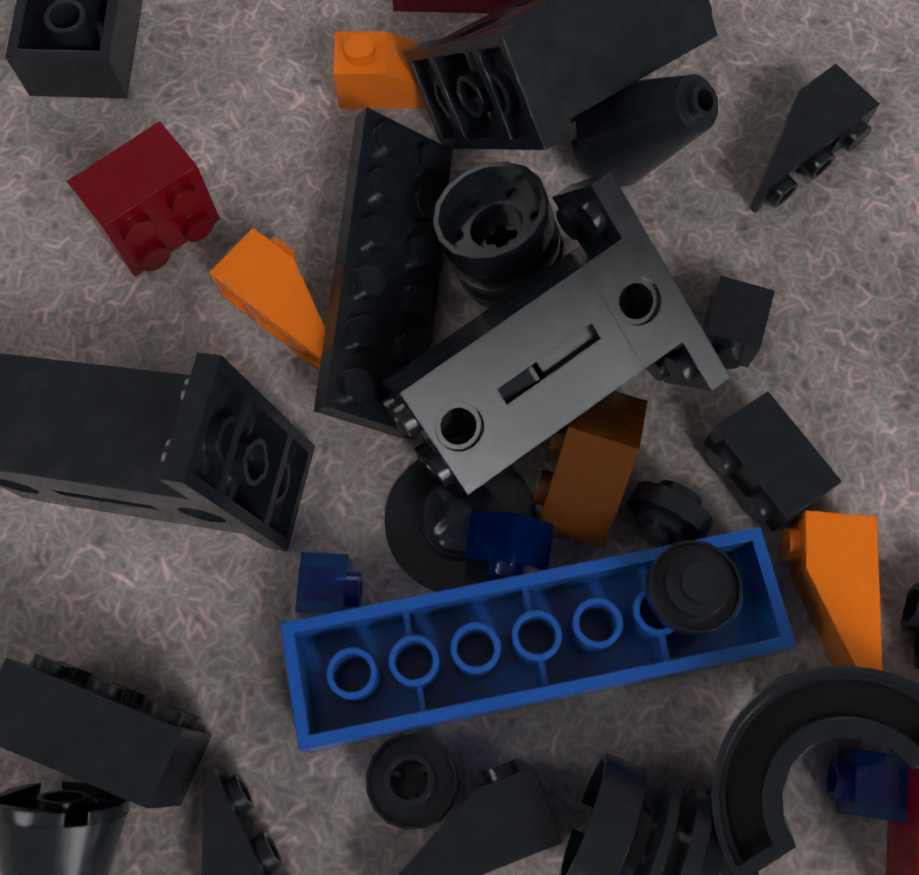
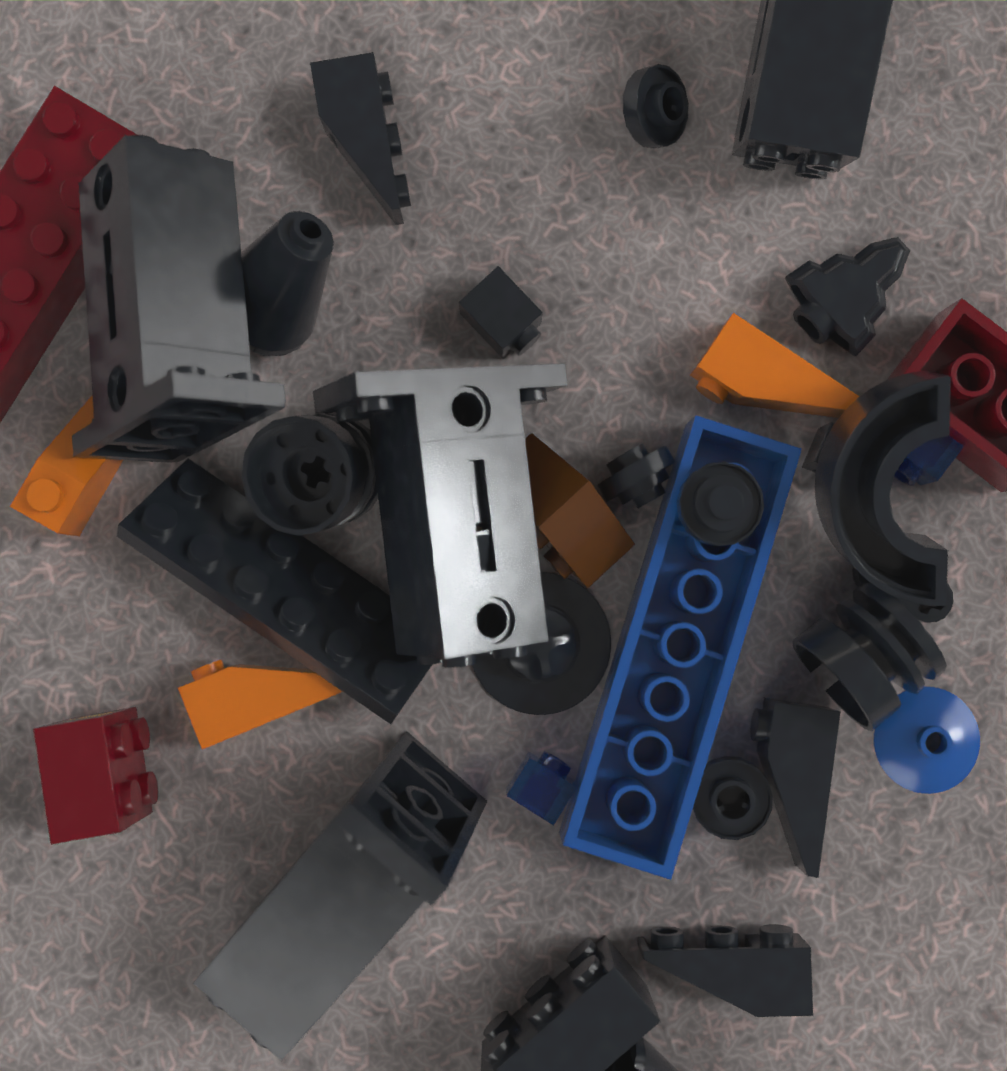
camera: 65 degrees left, 15 degrees up
(509, 542) = (592, 621): clear blue plate -> none
(769, 462) = (638, 364): black brick -> none

